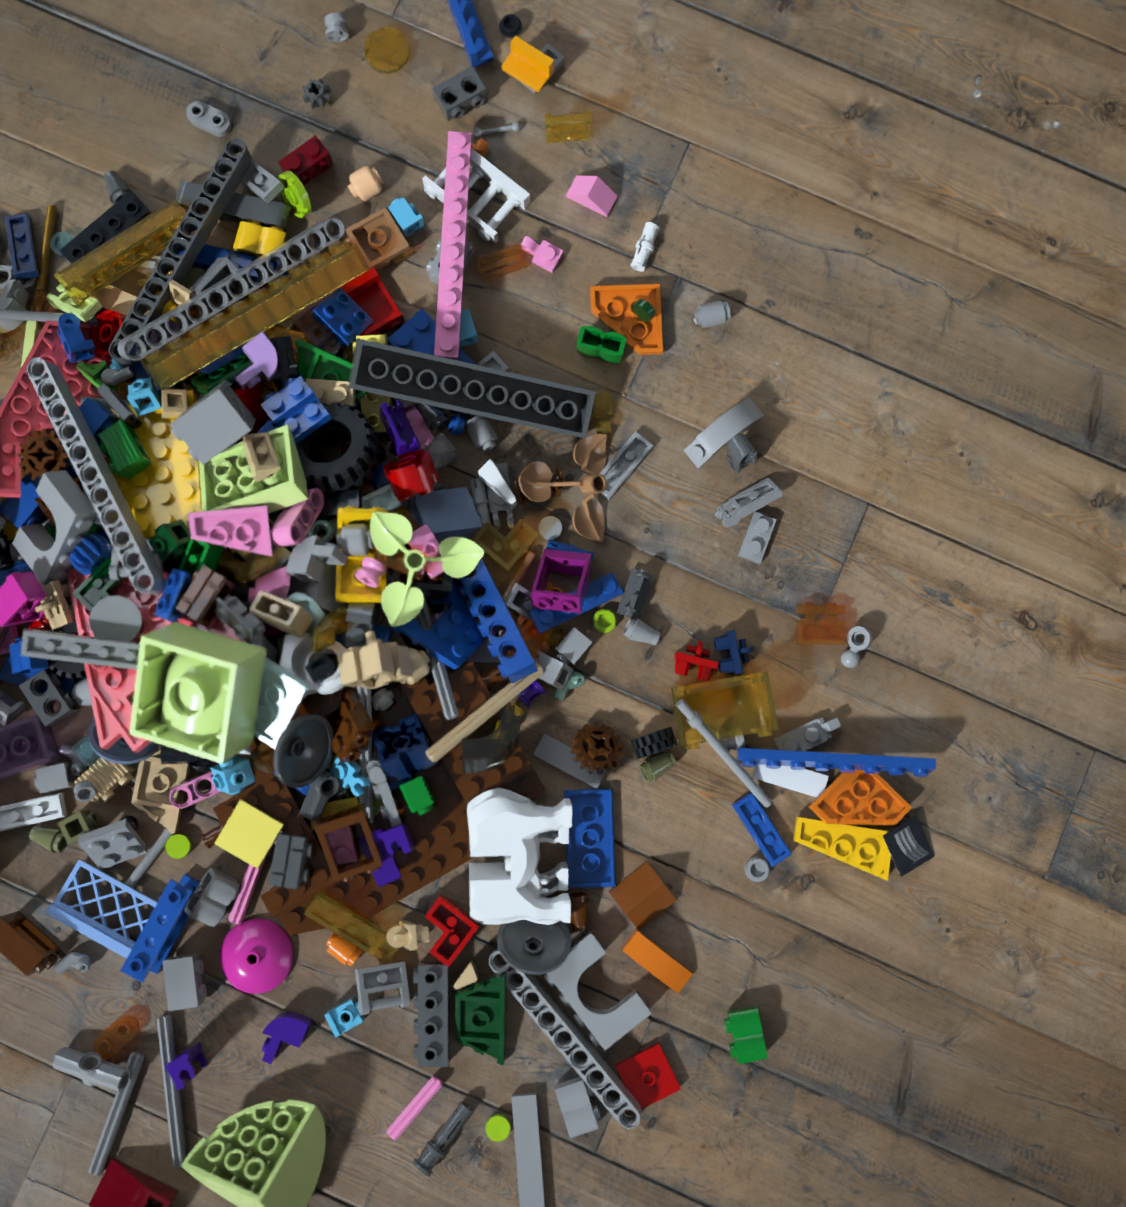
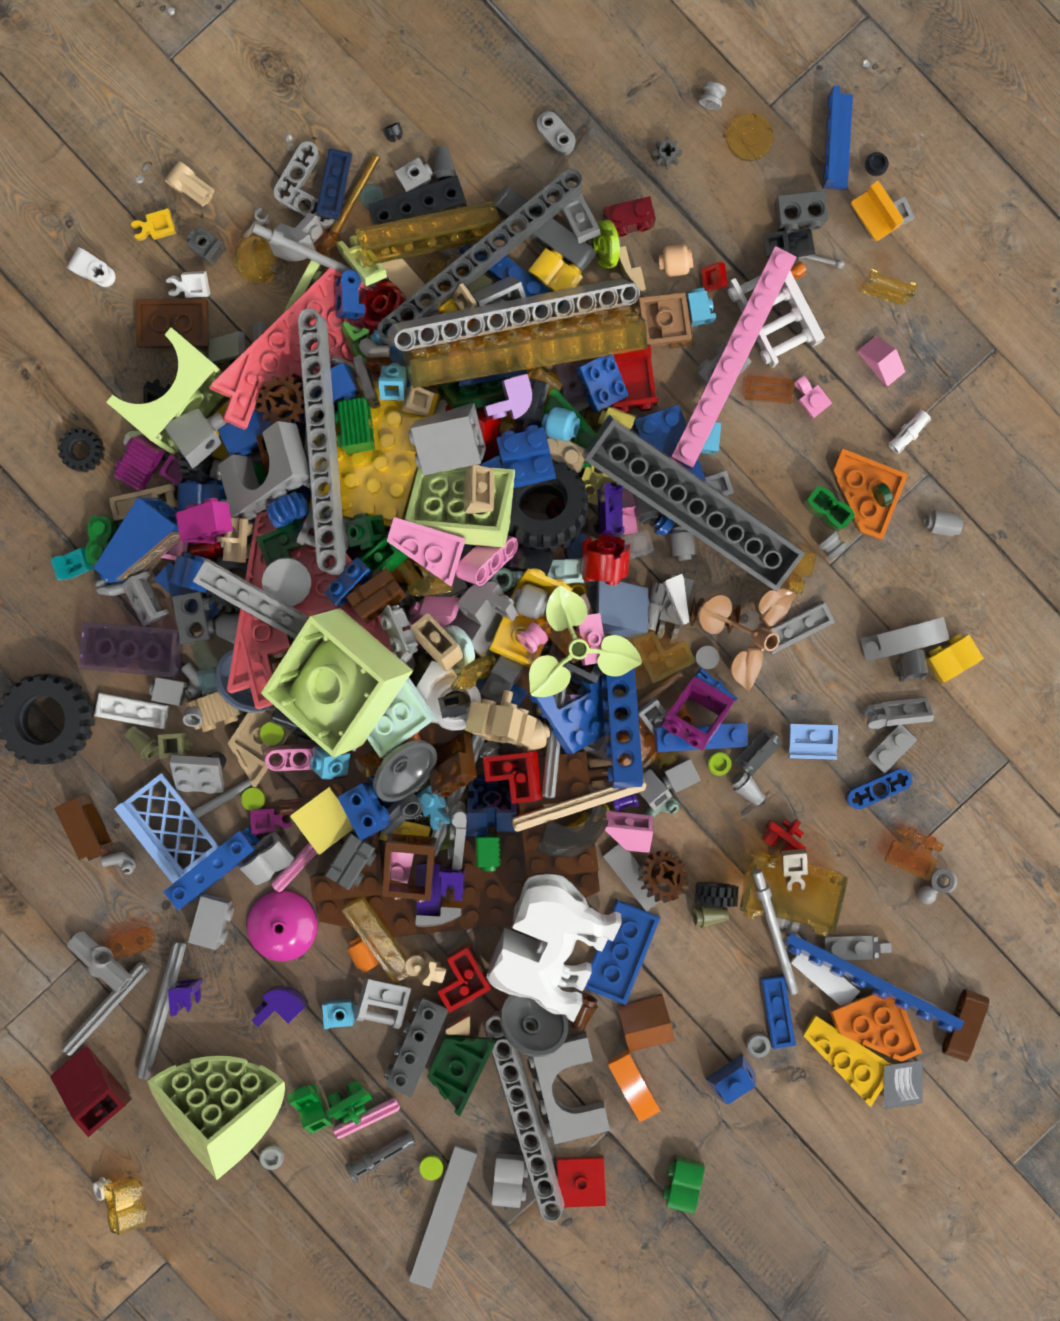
camera: 30 degrees right, 5 degrees up
(56, 178) = (393, 130): none -> black hinge
(91, 207) = (414, 175): none -> light grey brick
(169, 775) = (272, 734): none -> lime tile
(198, 862) = (264, 821): none -> magenta plate
(283, 806) = (364, 810): none -> blue brick
(316, 367) = (561, 424): none -> medium azure head
(329, 211) = (633, 275): none -> tan slope
(339, 1187) = (271, 1157): none -> light grey tile
(356, 1121) = (310, 1107): none -> green brick
(394, 1102) = (351, 1107): none -> green hips
(407, 183) = (714, 277): none -> red plate
(407, 874) = (446, 915): none -> light grey slope
(414, 703) = (522, 772): none -> red brick
(471, 122) = (796, 243): none -> black slope
(547, 718) = (630, 830): none -> bright pink slope
(620, 376) = (832, 545): none -> light grey wheel
(681, 562) = (813, 741): none -> light blue plate
(713, 682) = (793, 866): none -> plate
(733, 663) = (824, 833): dark blue hips -> none
(747, 913) = (732, 1080): none -> blue torso
(771, 580) = (892, 775): none -> blue beam
(776, 431) = (953, 658): none -> yellow brick
(943, 780) = (972, 1010): none -> reddish brown beam

